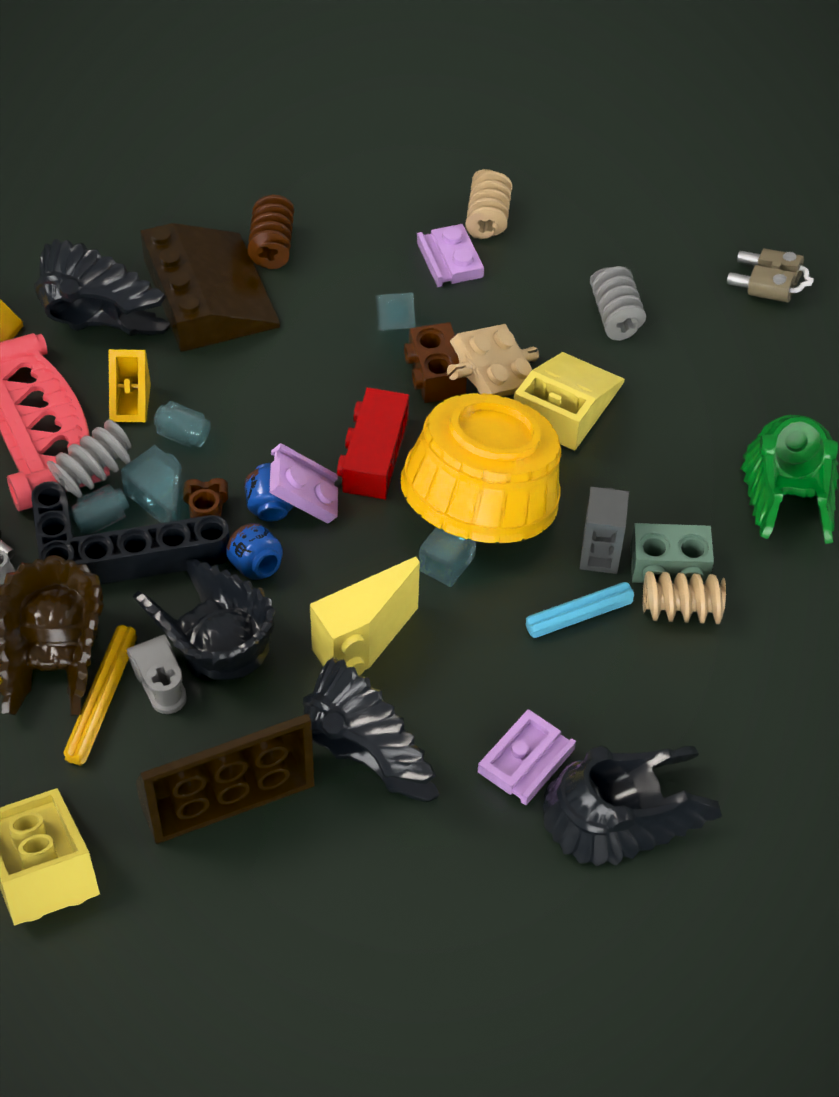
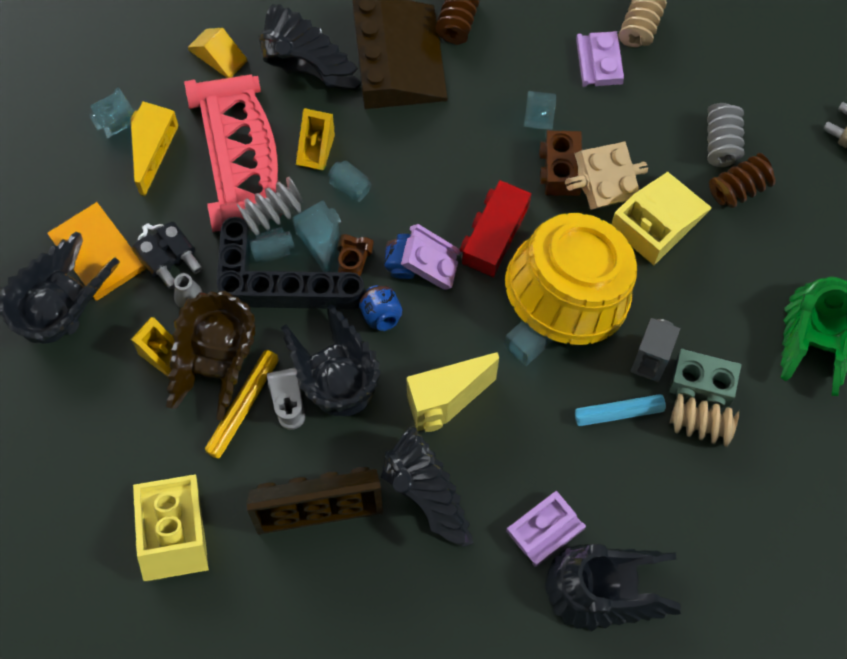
camera: 15 degrees right, 15 degrees up
(652, 345) = (743, 181): none -> reddish brown piece

